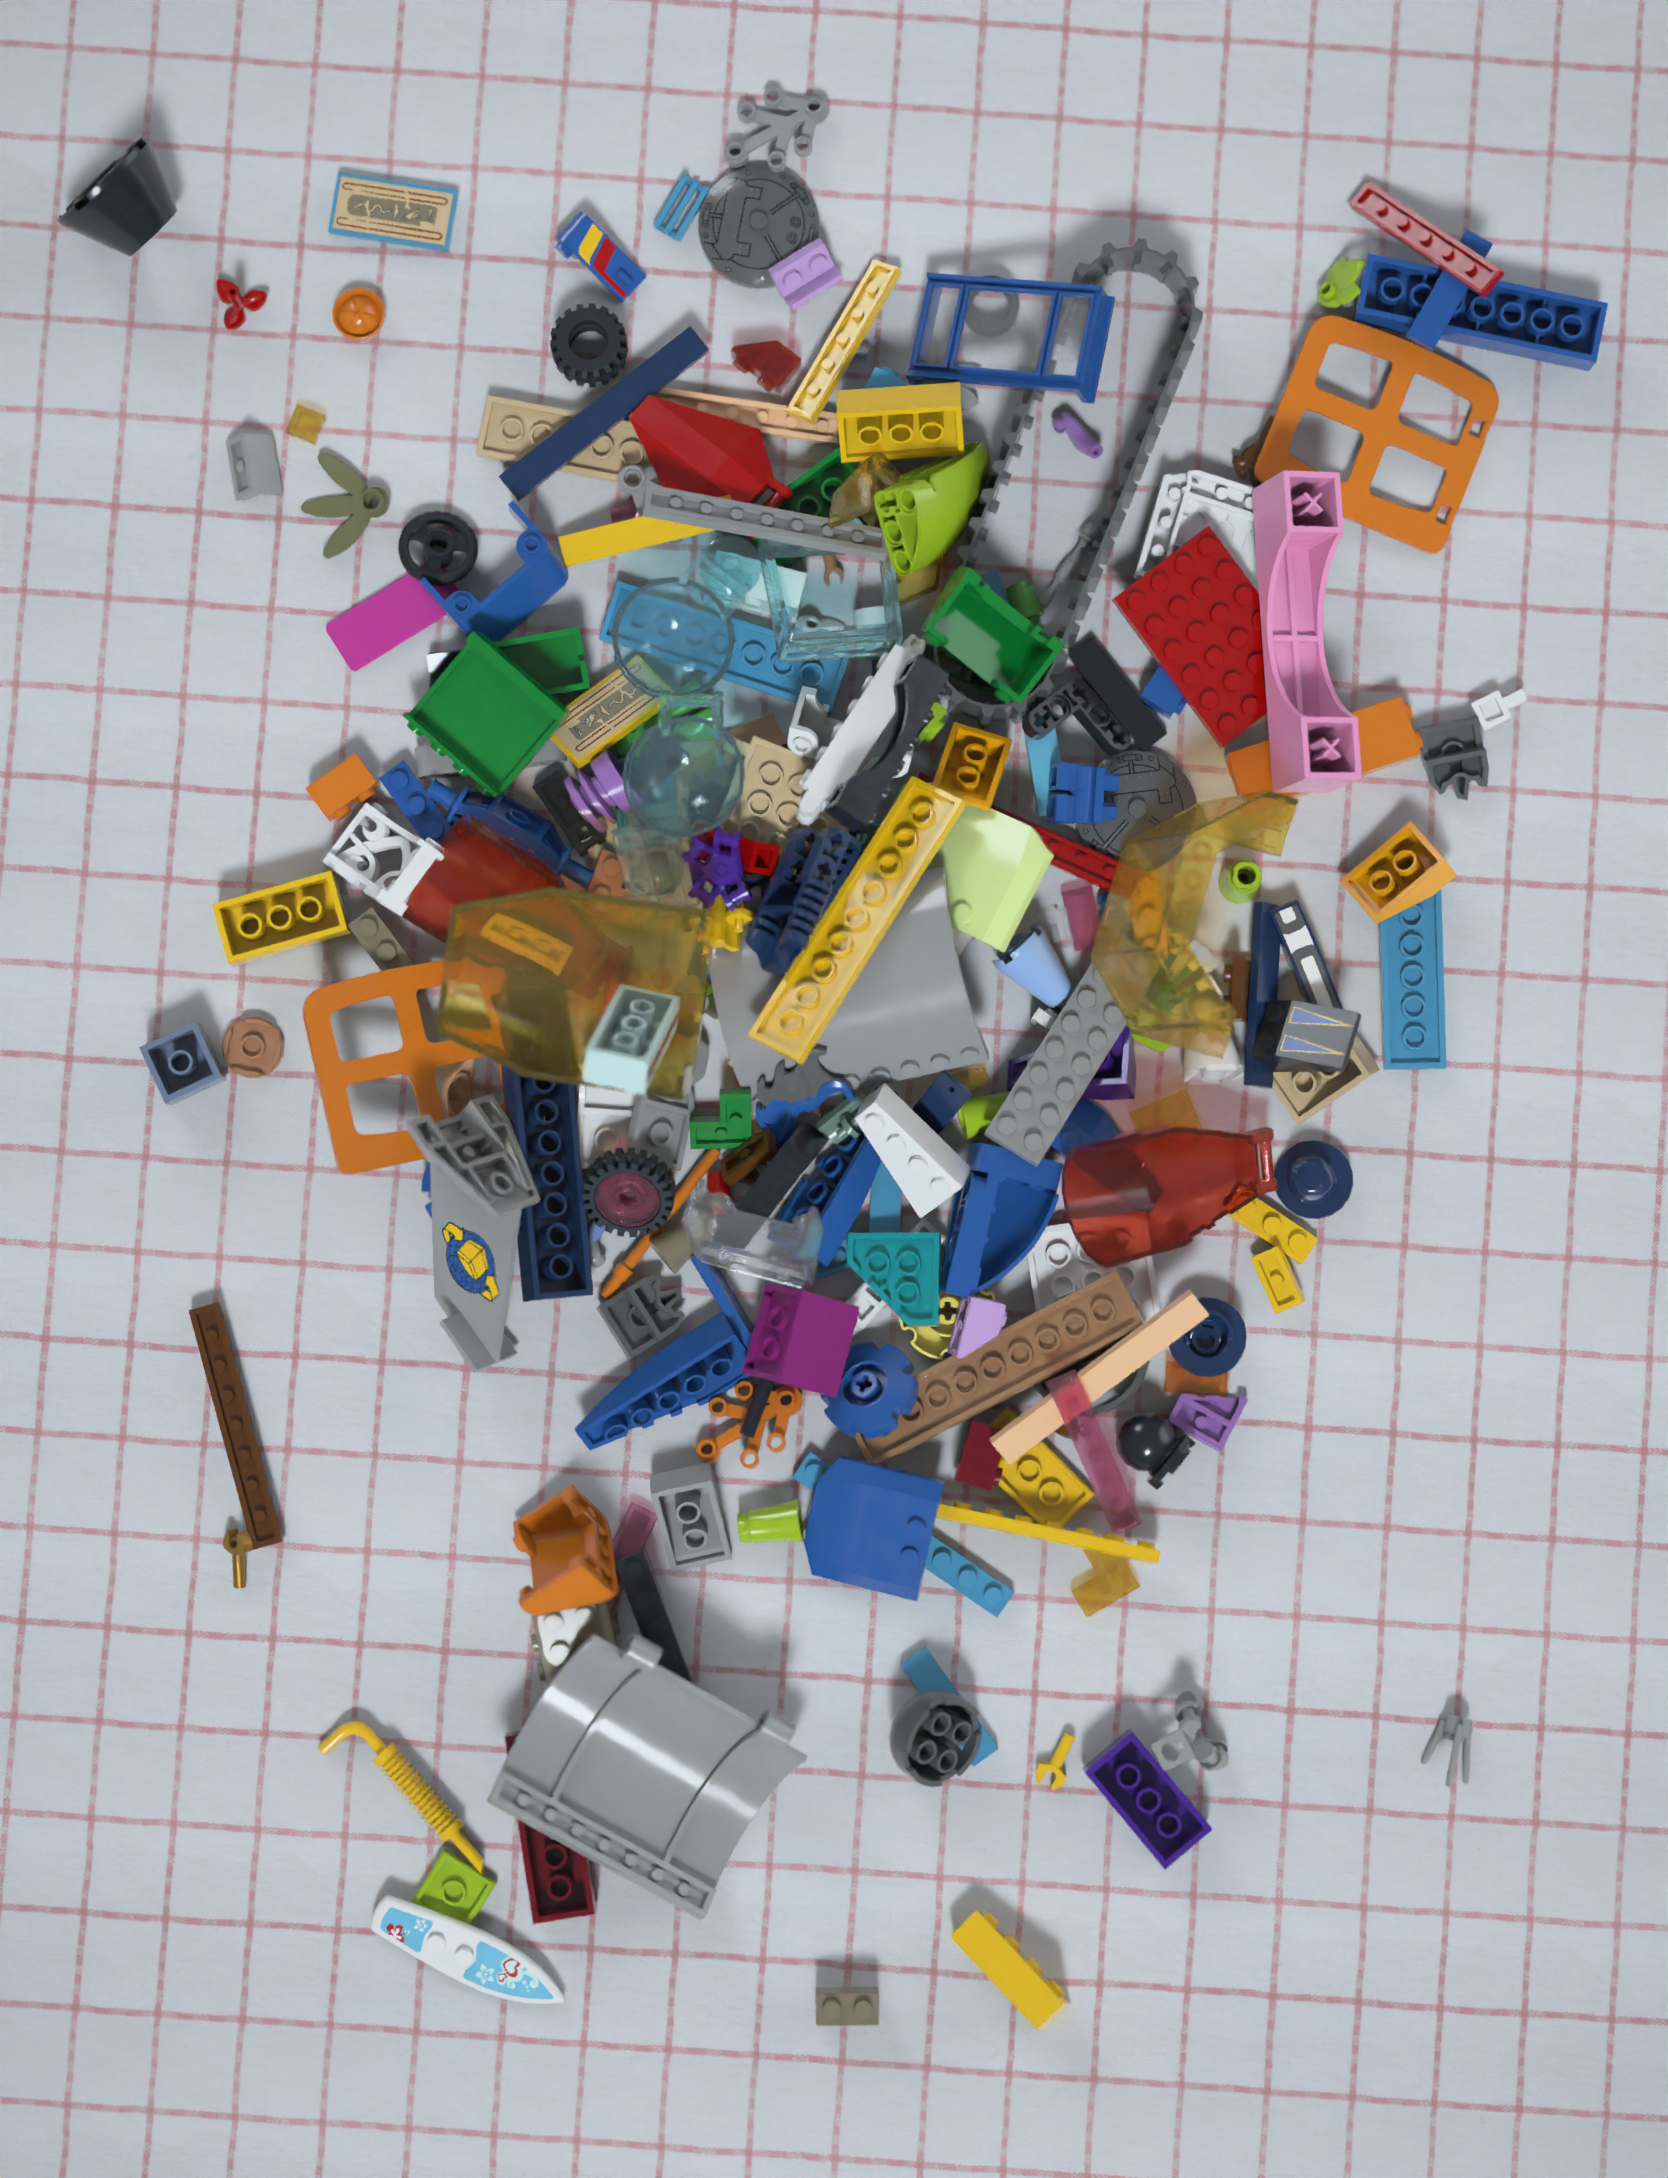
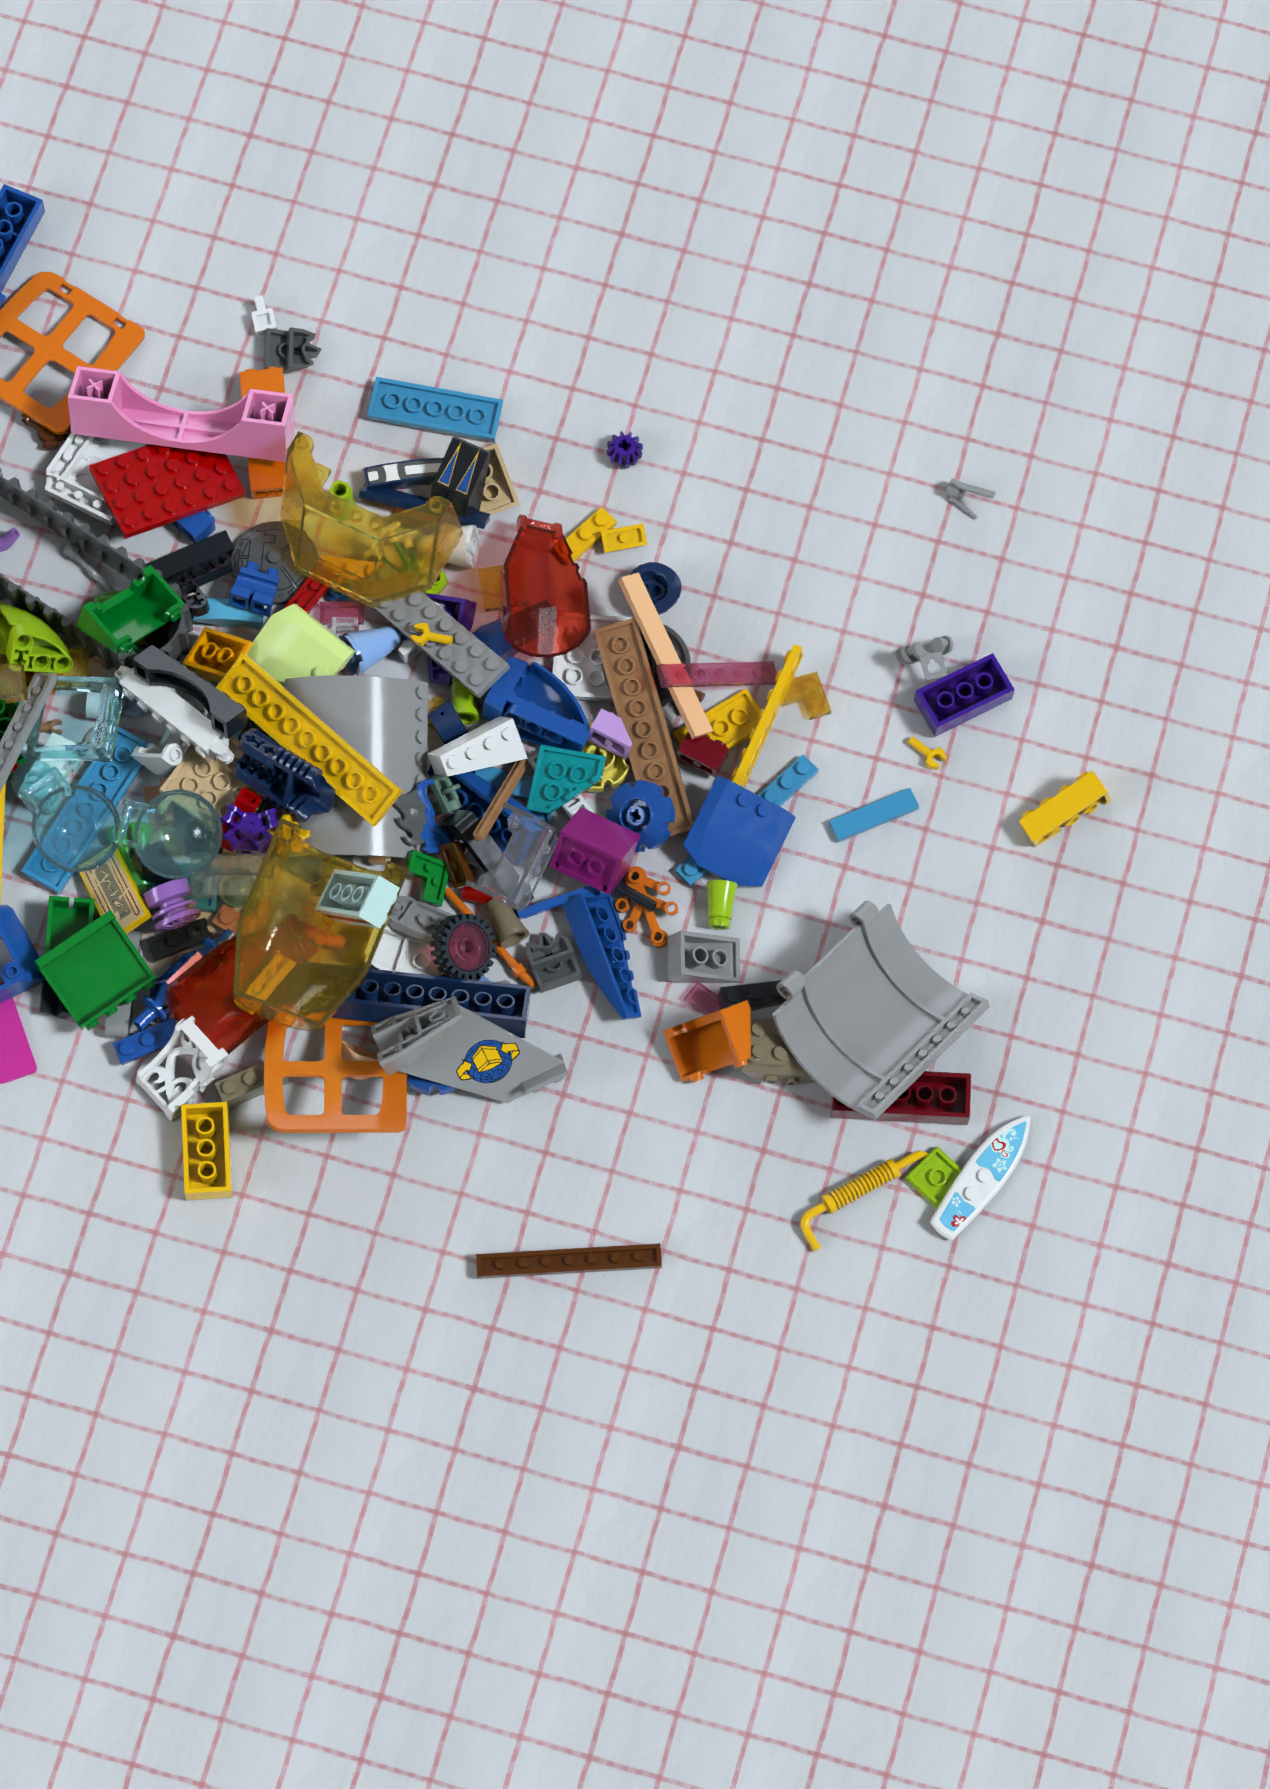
camera: 75 degrees left, 15 degrees down
(183, 1063) = (295, 1242): sand blue brick -> none
(238, 1545) = (662, 1278): pearl gold bar -> none
(253, 1047) = (295, 1196): nougat tile -> none
(343, 788) = (121, 1091): orange brick -> none
(840, 1196) = (500, 798): none -> medium nougat axle
(847, 2006) = (1069, 923): dark tan brick -> none
(928, 1736) = (886, 832): dark grey cylinder -> none
(1058, 1046) = (429, 636): none -> yellow bar
(1150, 1444) = (719, 640): black tile -> none
(1182, 1381) = (679, 614): clear orange plate -> none
(1207, 1417) = (709, 604): medium lavender wing -> none
(1313, 1179) = (560, 500): dark blue hat -> none
(1398, 874) = (362, 398): light orange slope -> none
(1401, 1247) = (617, 453): none -> dark purple gear

